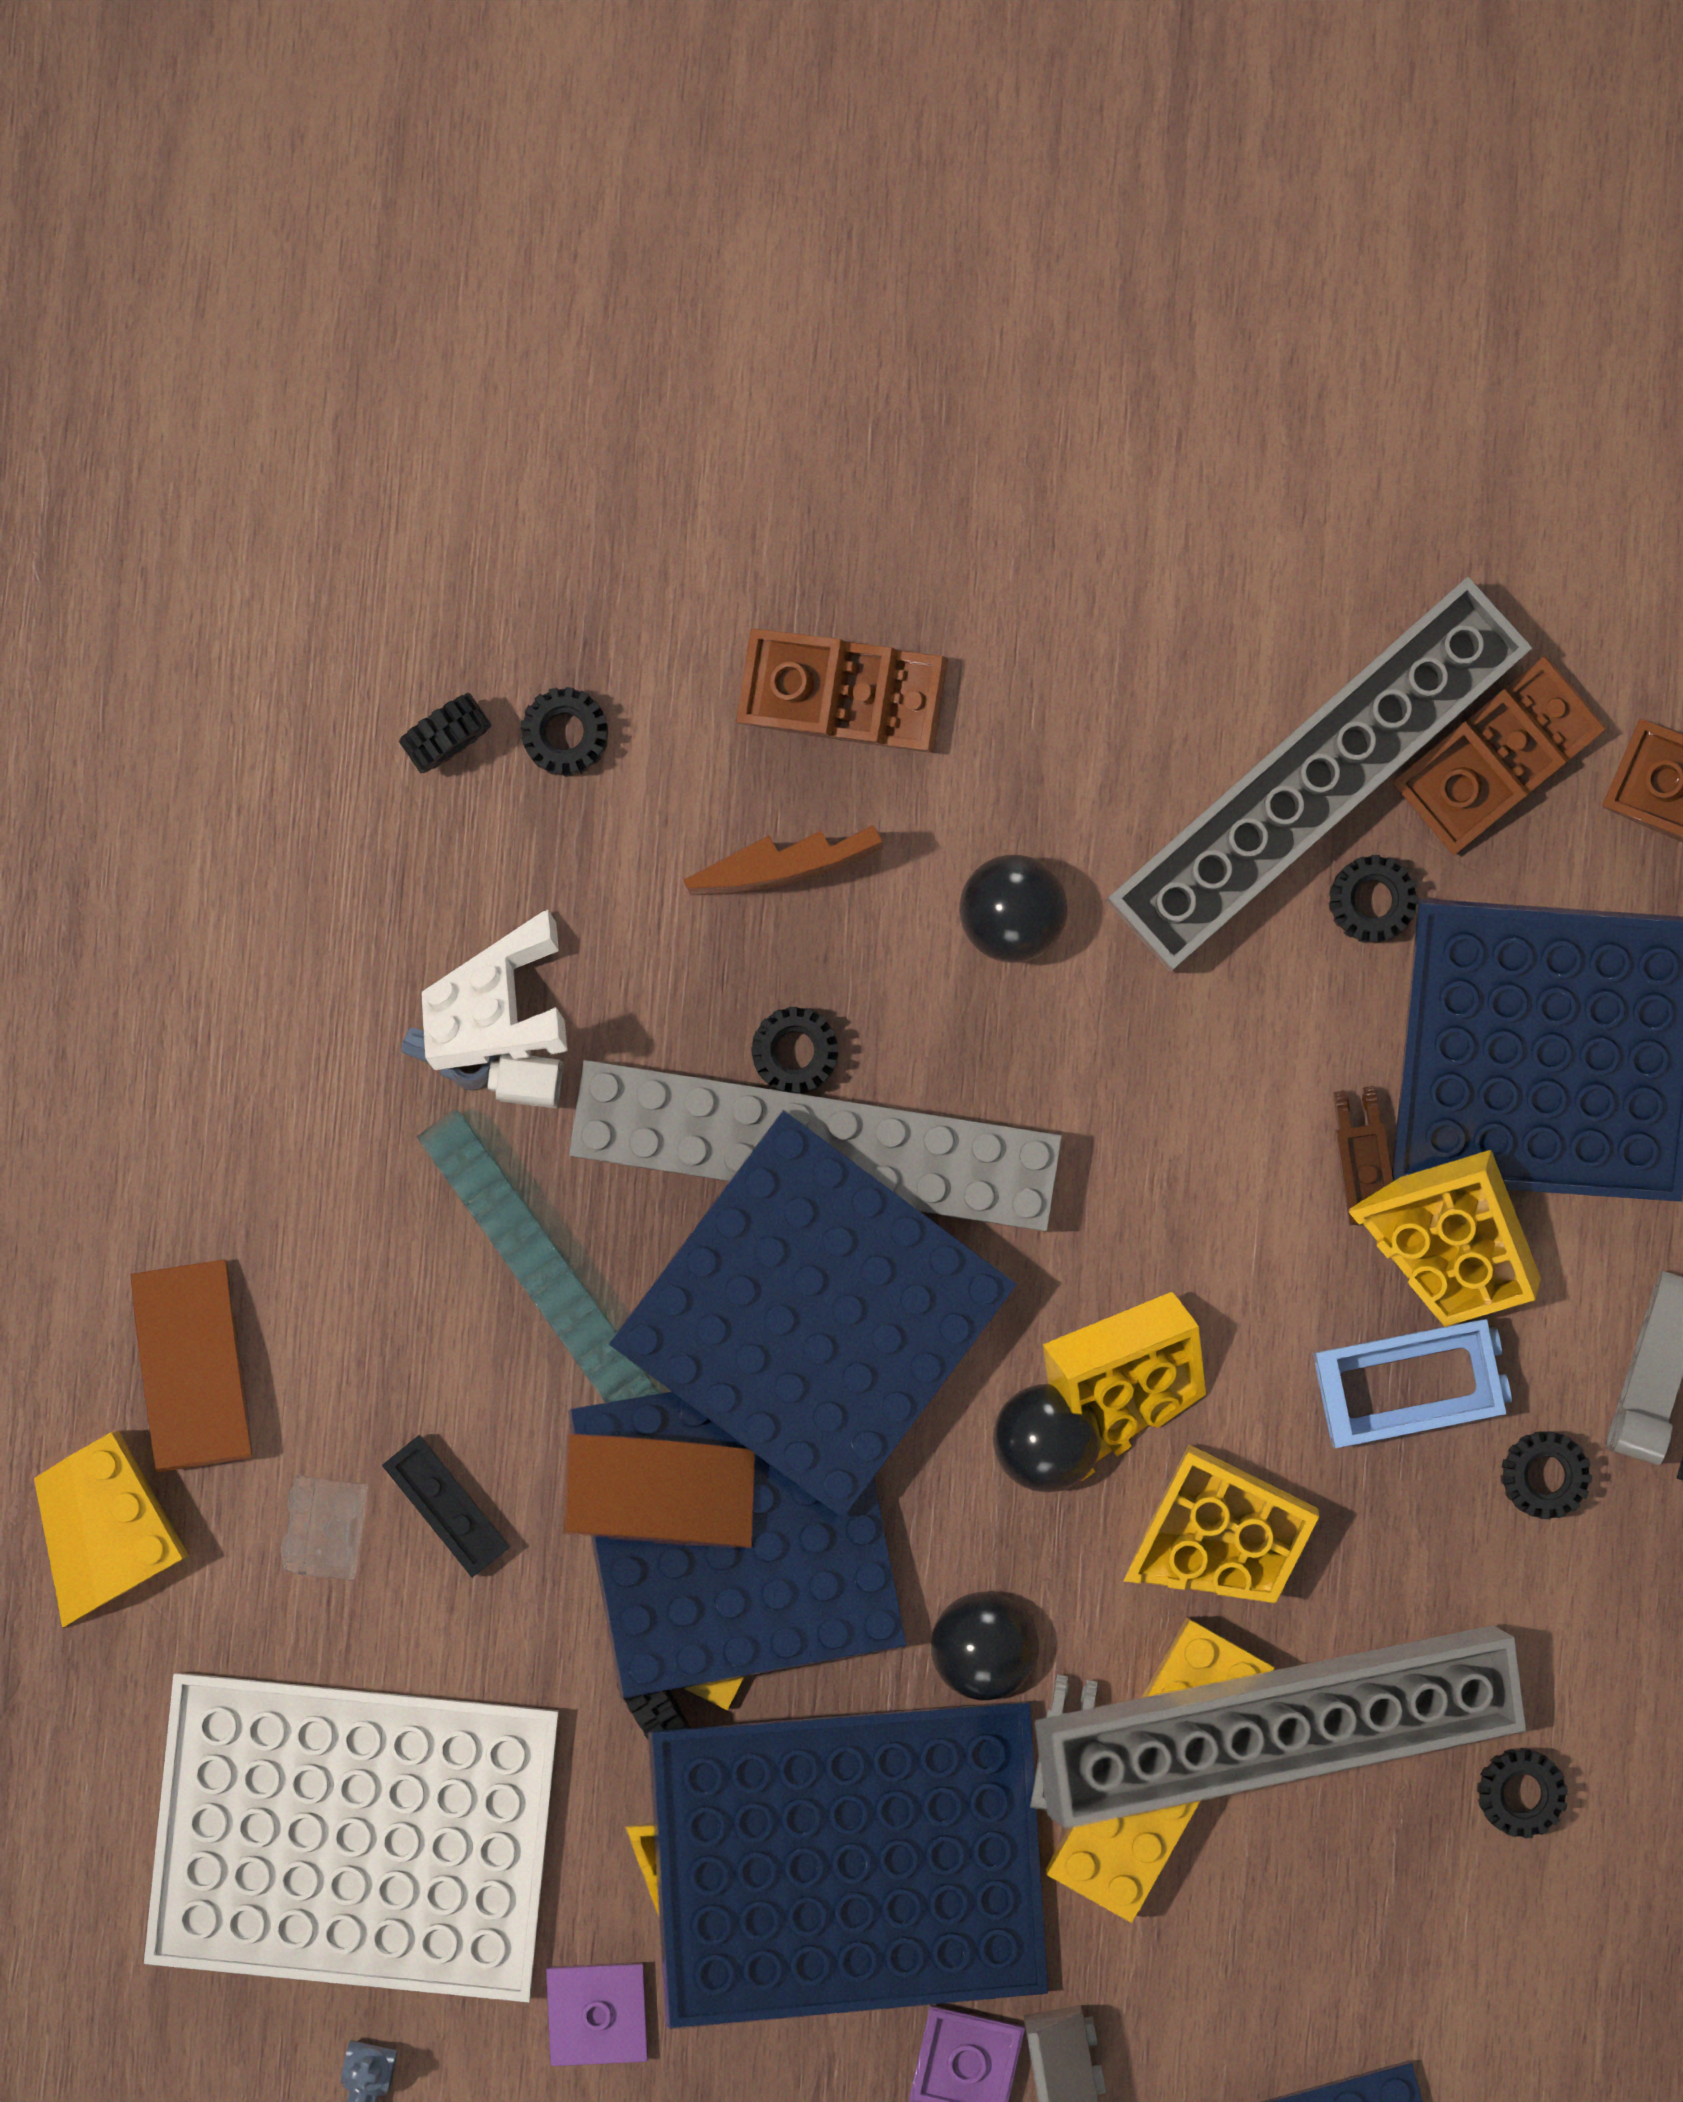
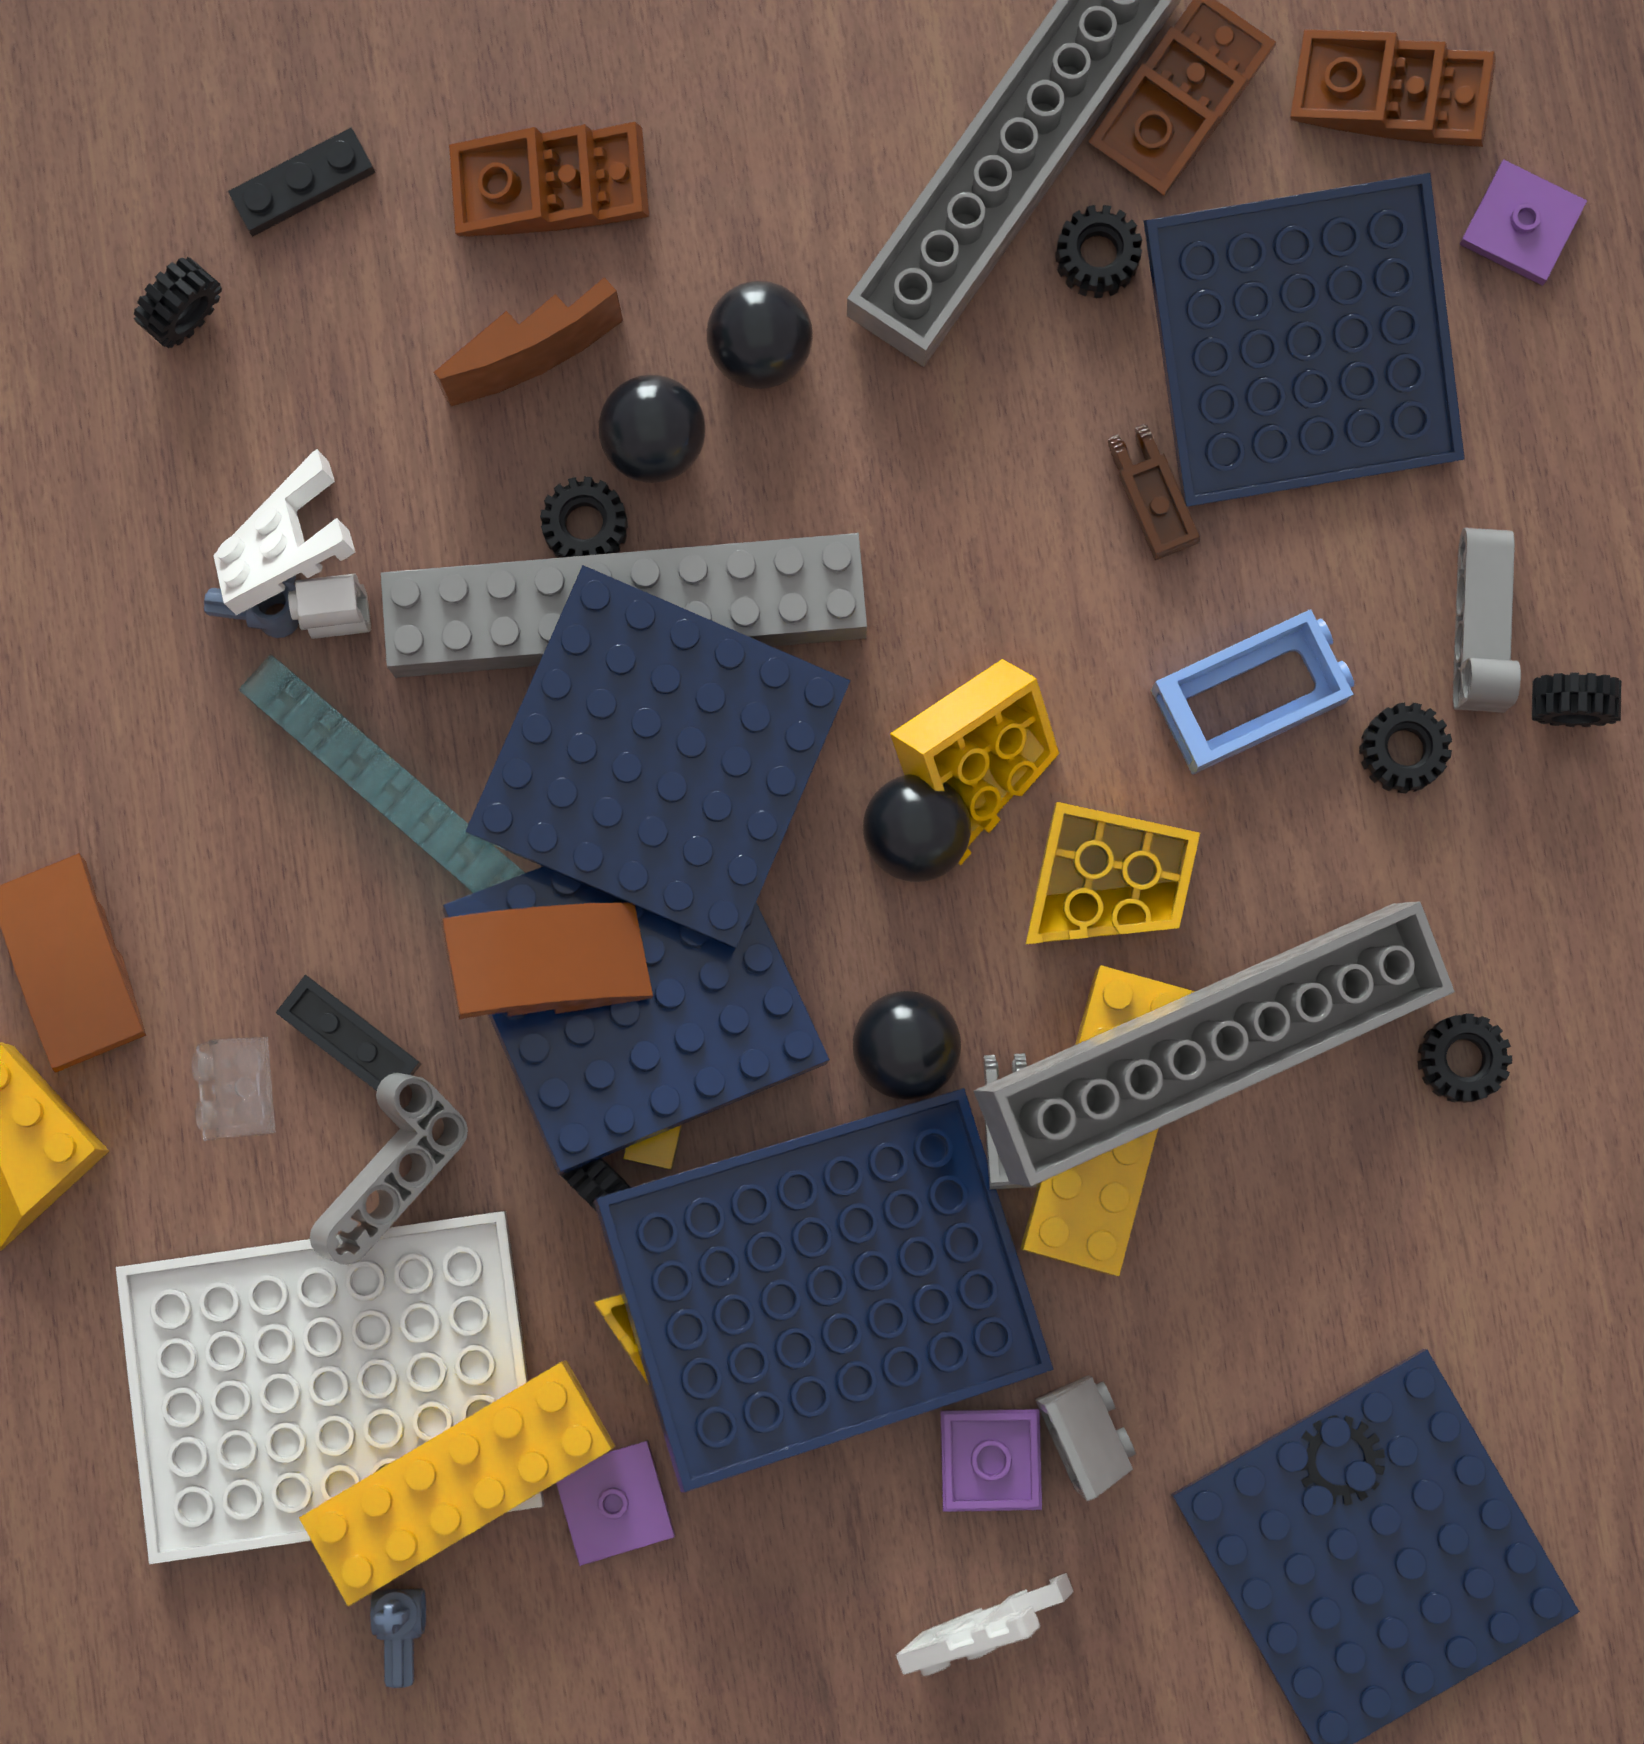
camera: 20 degrees left, 5 degrees down
(451, 1648) = (383, 1170): none -> light grey beam
(456, 1961) = (457, 1482): none -> yellow brick
(561, 702) = (287, 253): black tyre -> none
(594, 629) = (301, 181): none -> black plate
(884, 979) = (651, 428): none -> black piece
(1454, 1238) = (1259, 541): yellow wedge -> none

